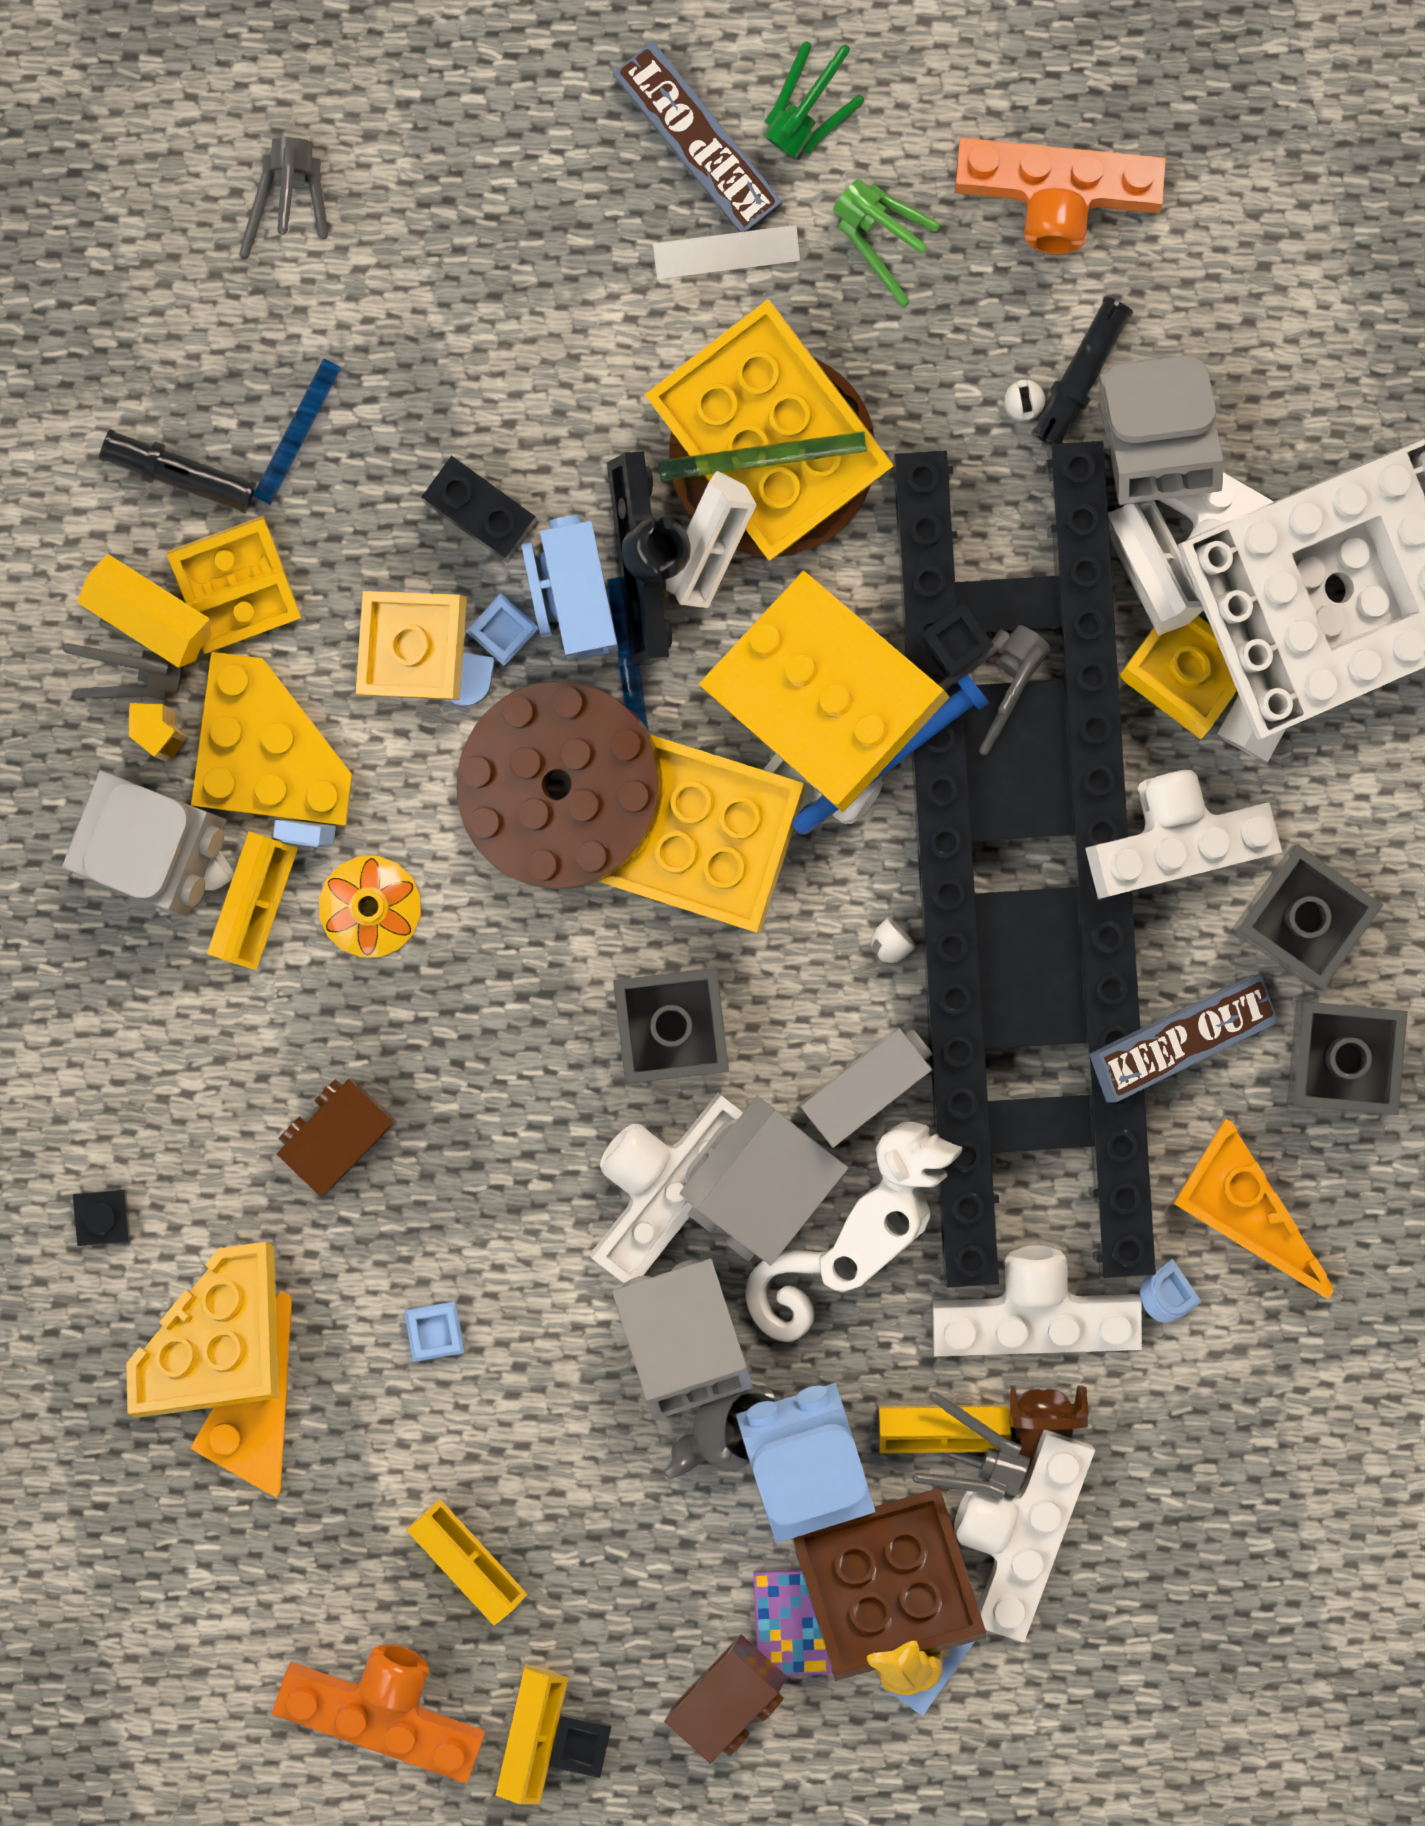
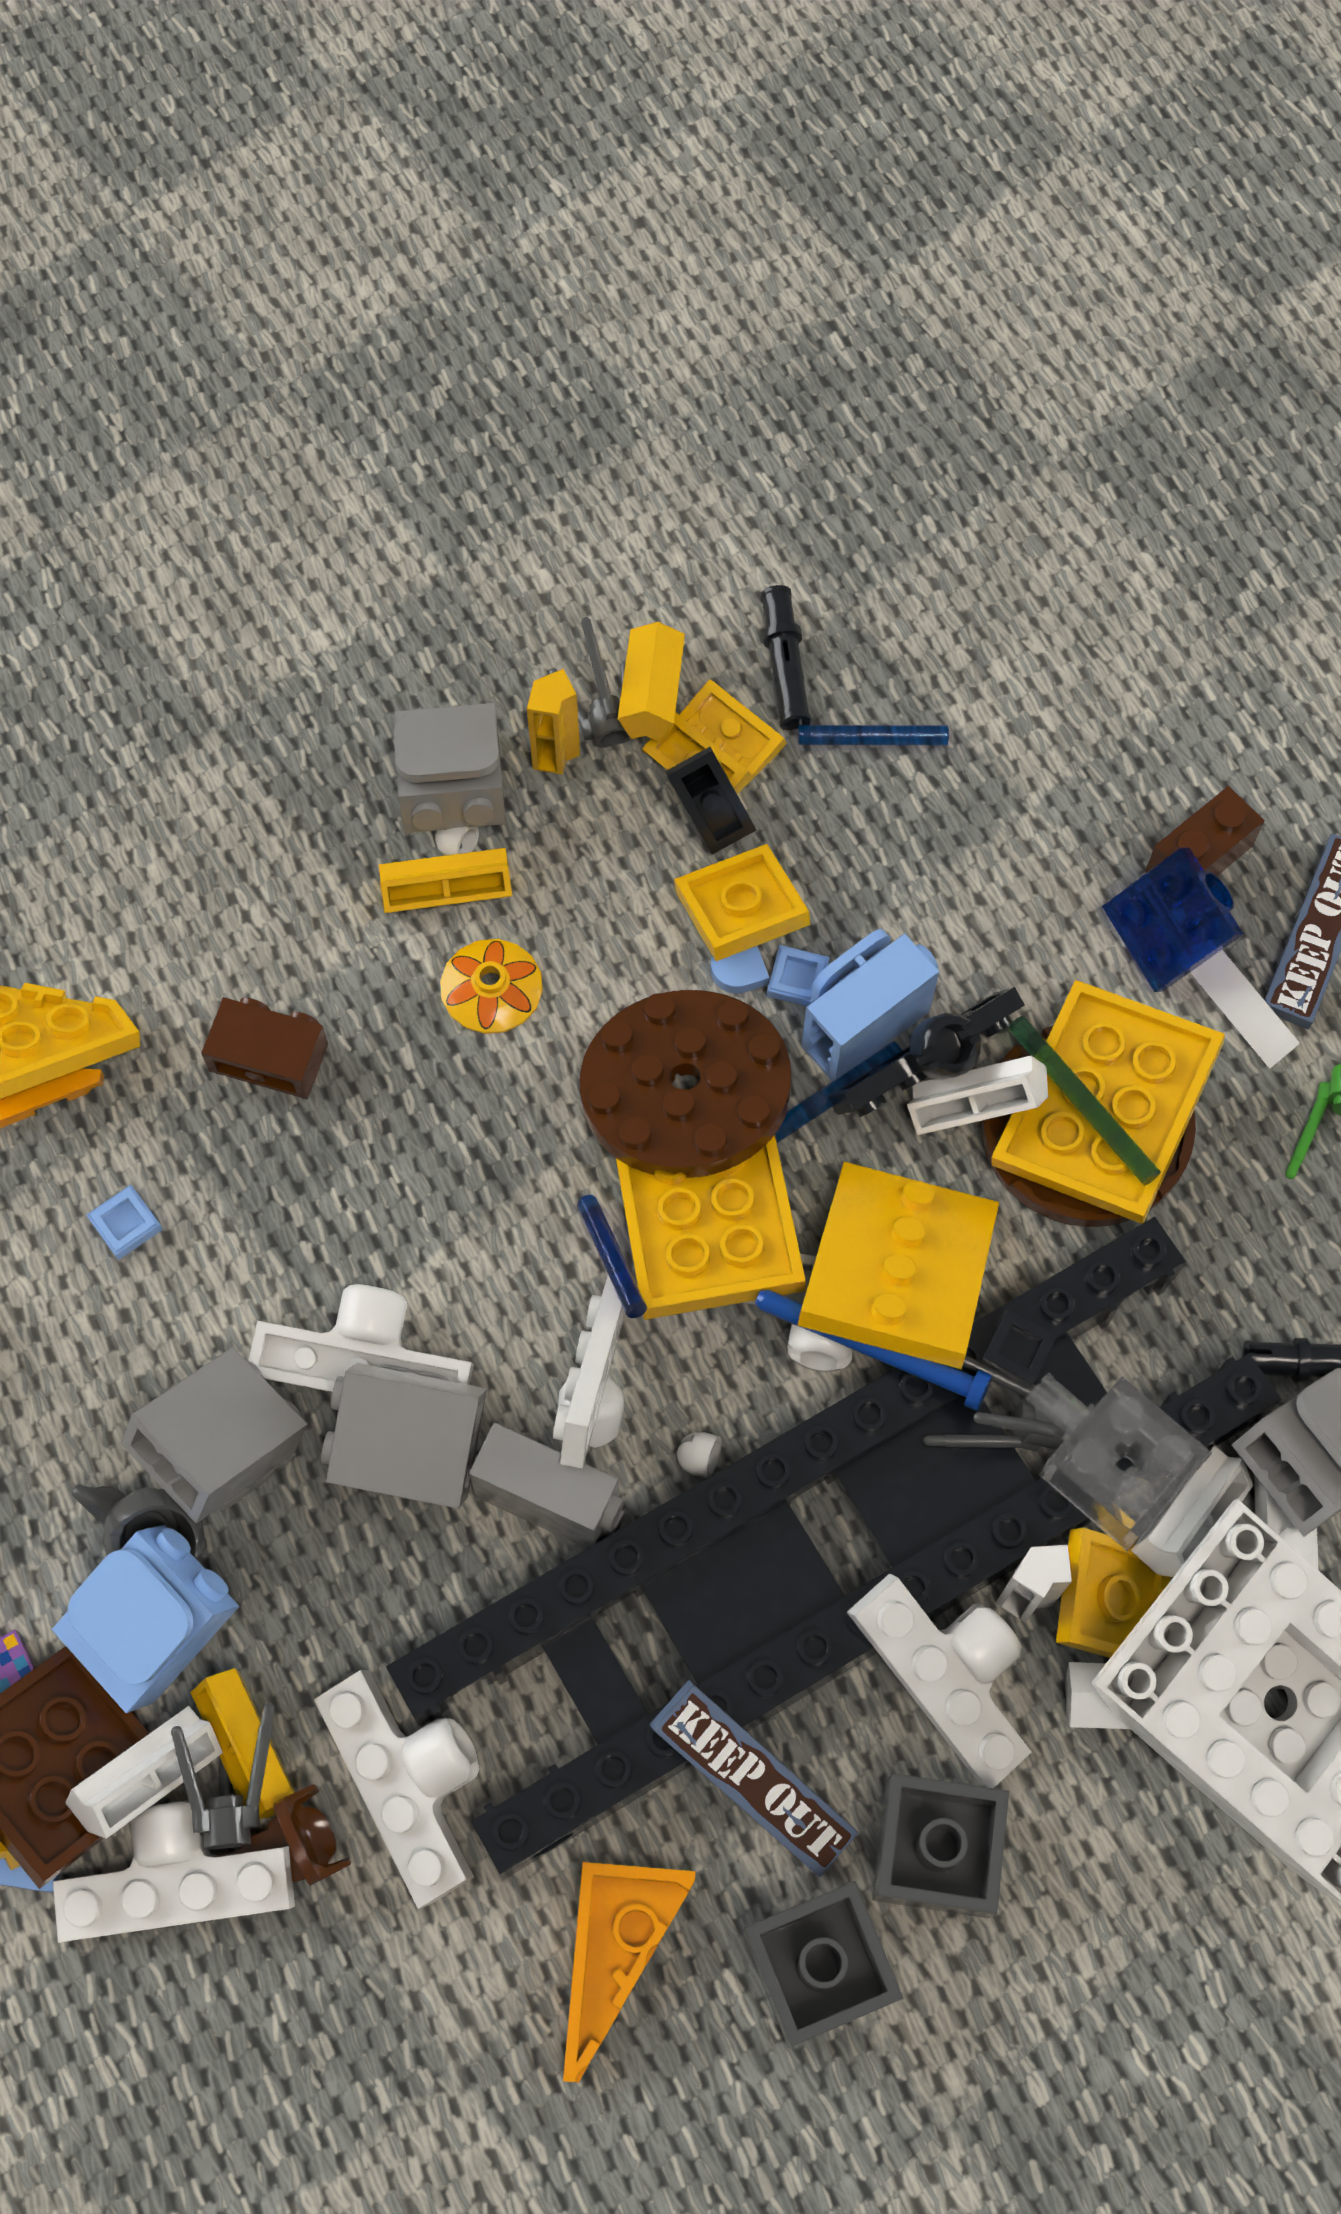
camera: 60 degrees right, 20 degrees down
(101, 1217) = (100, 895): black plate -> none
(264, 750) = (584, 835): yellow plate -> none
(289, 164) = (1089, 624): dark grey plant -> none
(301, 622) = (711, 800): none -> black slope
(304, 833) = (528, 894): light blue tile -> none
(479, 509) = (894, 888): black brick -> none
(570, 198) = (1214, 833): none -> reddish brown brick
(630, 270) = (1174, 918): none -> clear blue plate
(671, 1025) = (514, 1283): dark grey brick -> none
(688, 931) = (612, 1256): none -> clear blue bar
(806, 1011) = (590, 1400): none -> white plate
(870, 1235) = (408, 1563): white animal -> none
(935, 1519) = (141, 1775): none -> white piece
(1014, 404) = (1278, 1331): white hinge -> none
(1061, 618) = (1102, 1434): none -> clear brick
(1147, 729) = (1037, 1581): none -> white piece
(1168, 1293) = (488, 1906): light blue tile -> none

